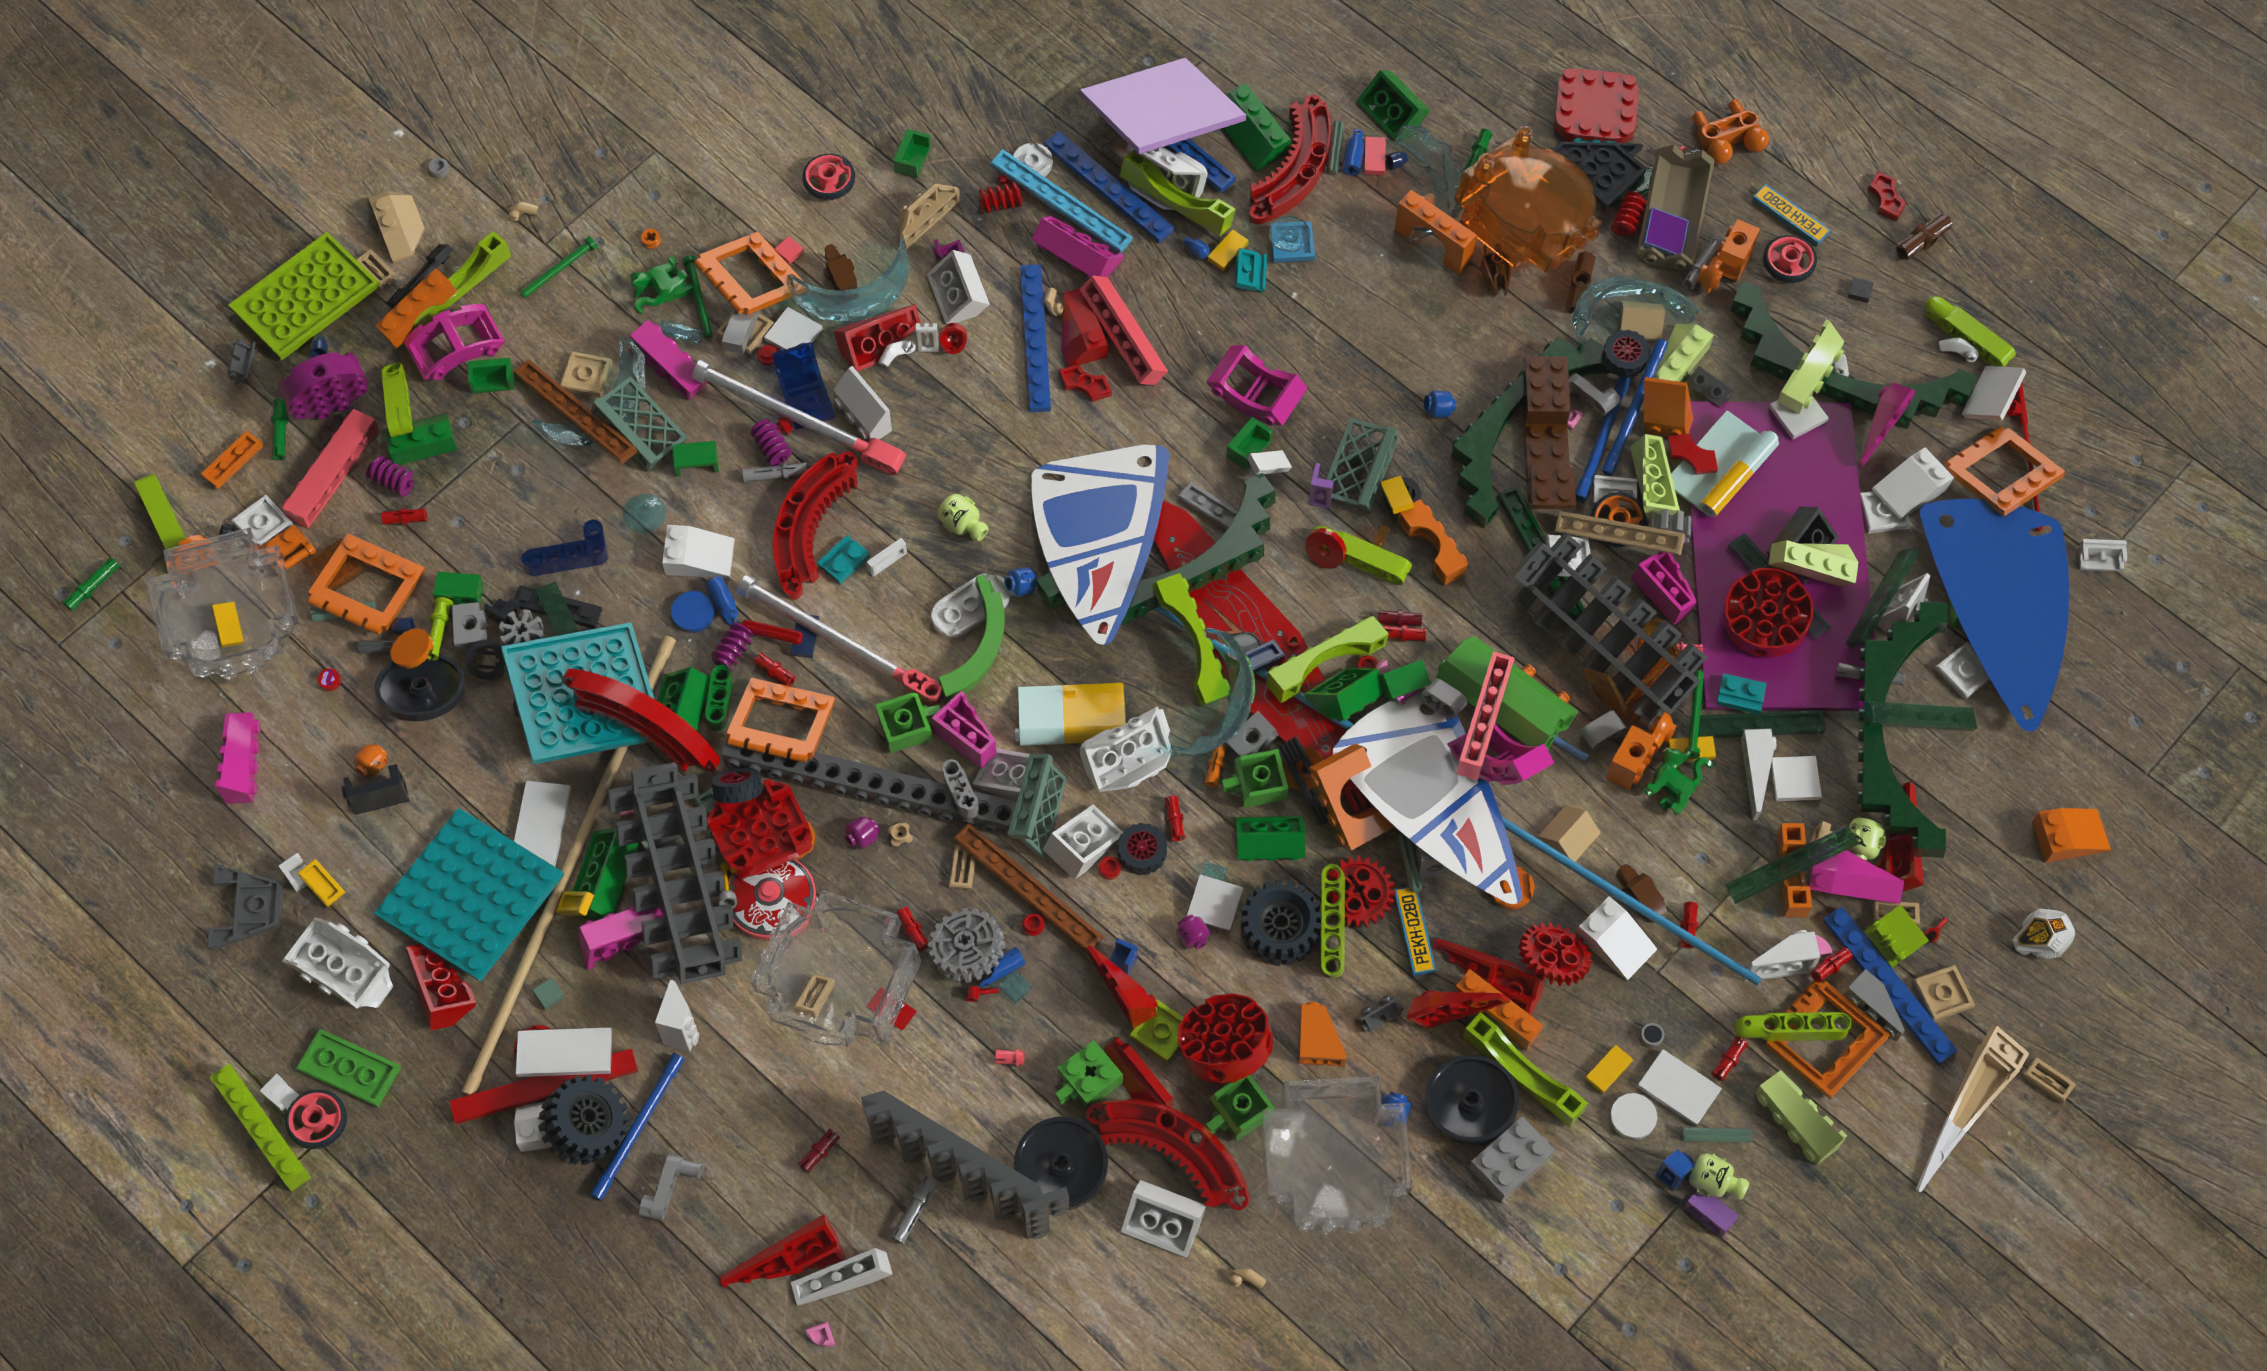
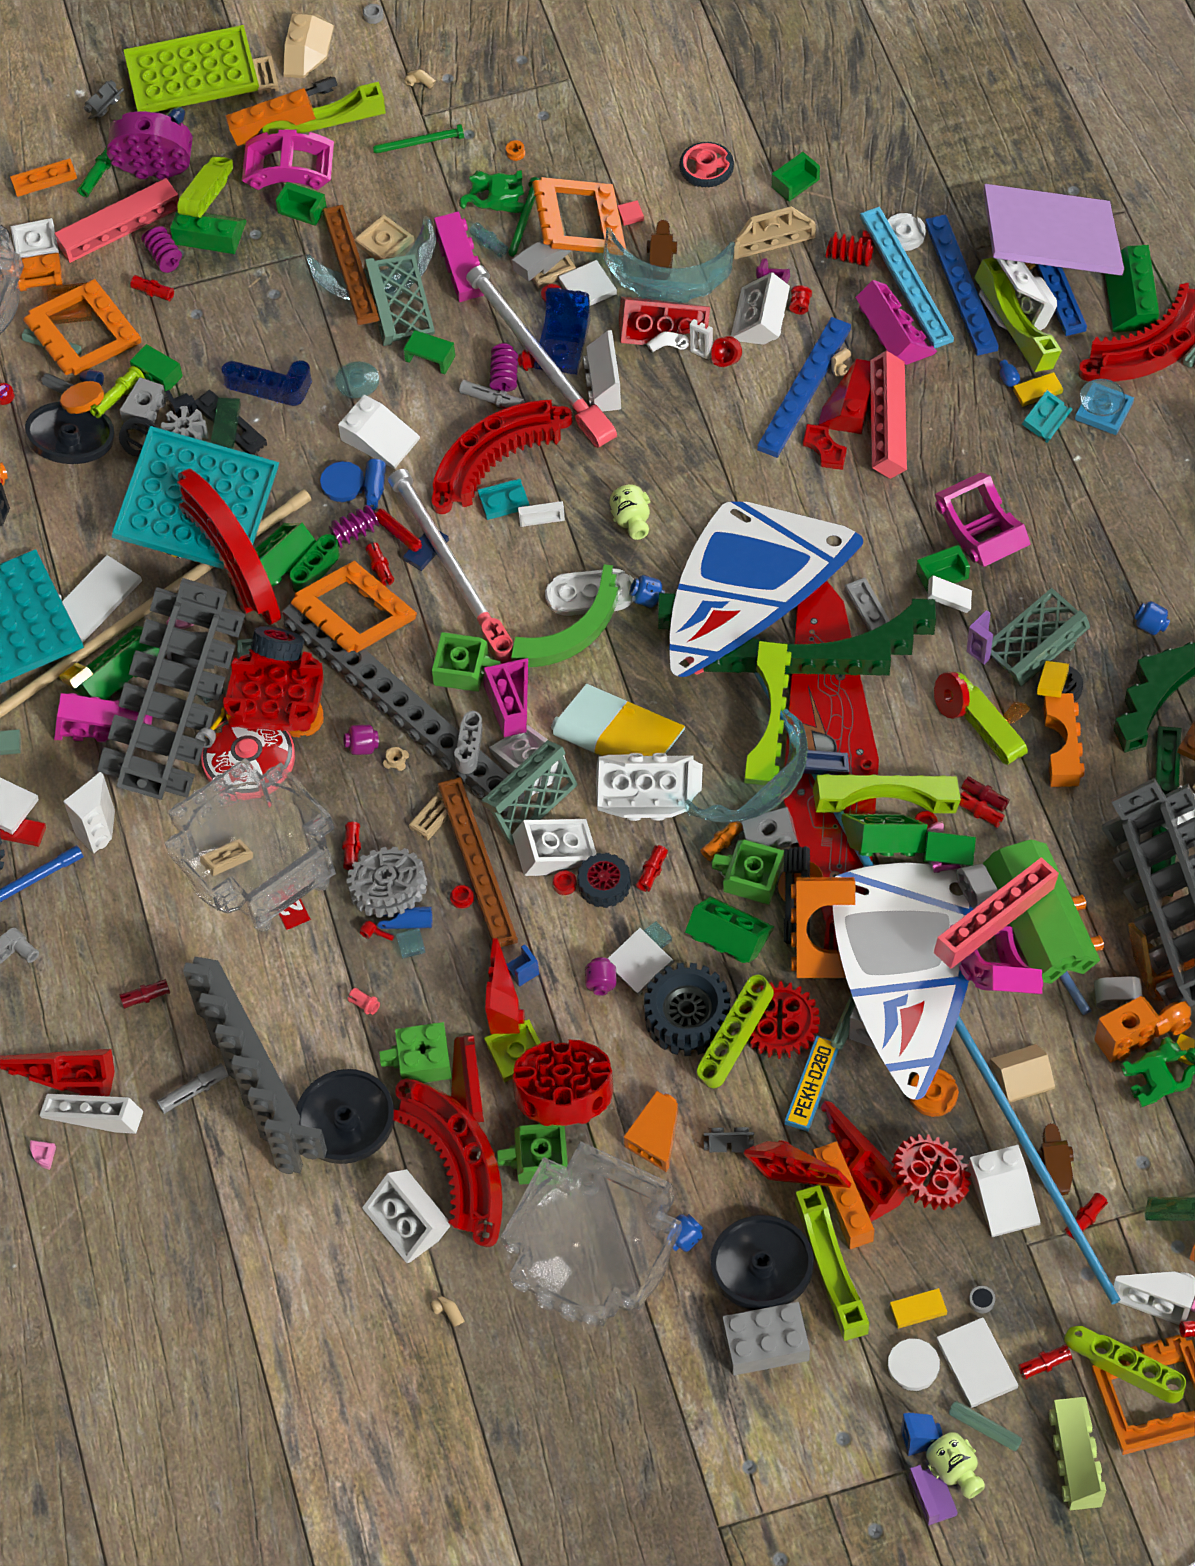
camera: 35 degrees right, 5 degrees down
(977, 257) = (800, 299): none -> red bush

